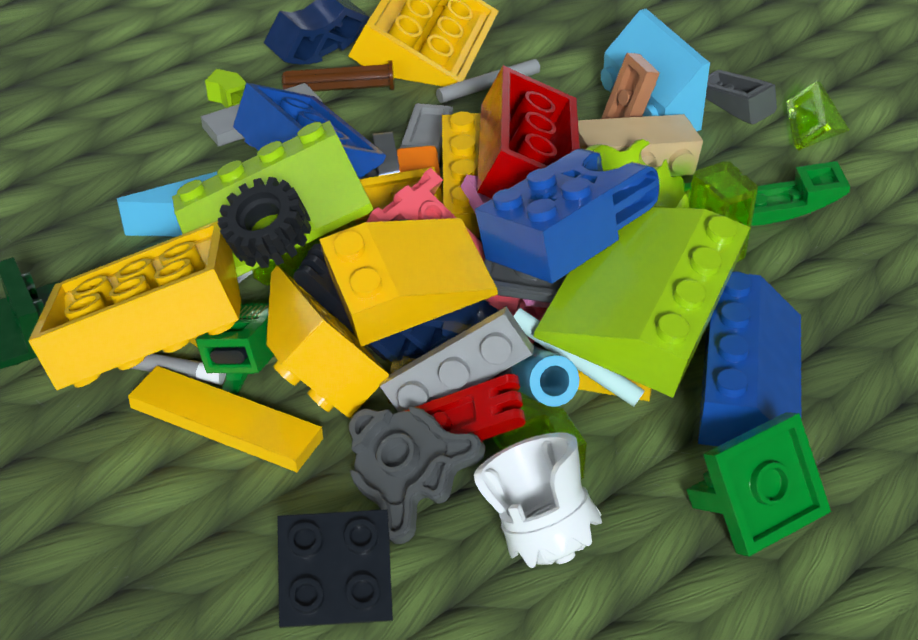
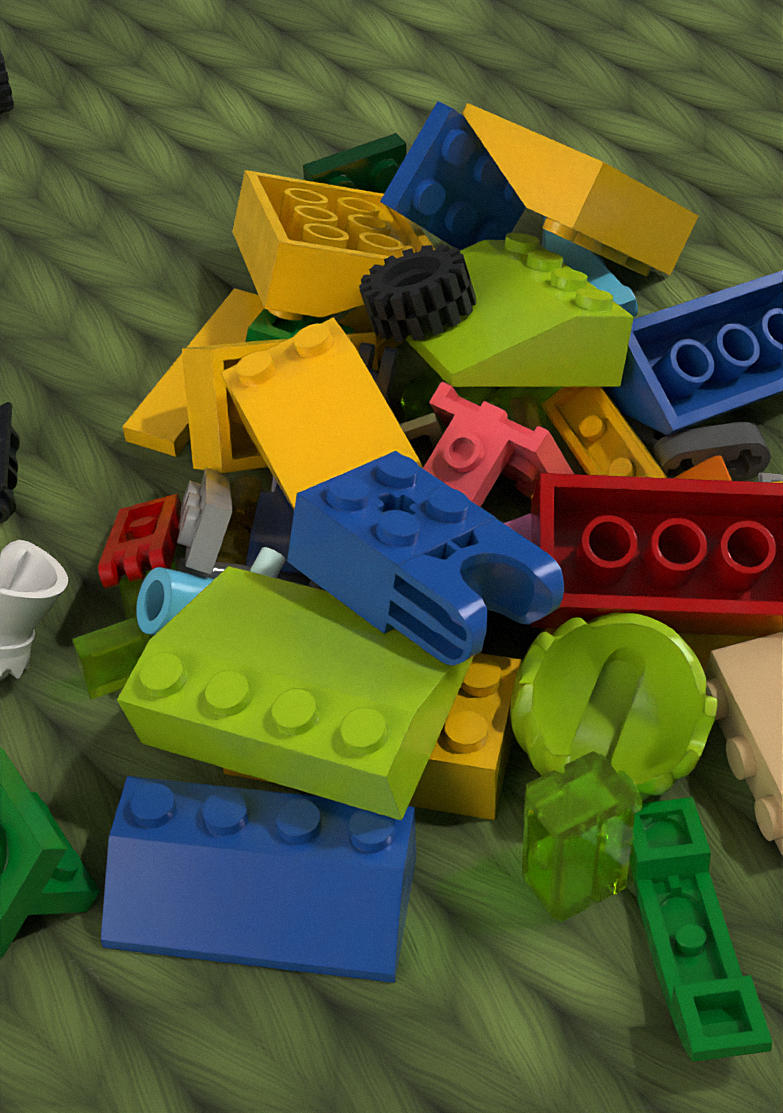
camera: 90 degrees right, 5 degrees up
(111, 208) = (453, 184): none -> blue plate
(151, 152) = (586, 197): none -> yellow slope
(407, 460) = (93, 507): dark grey tile -> none

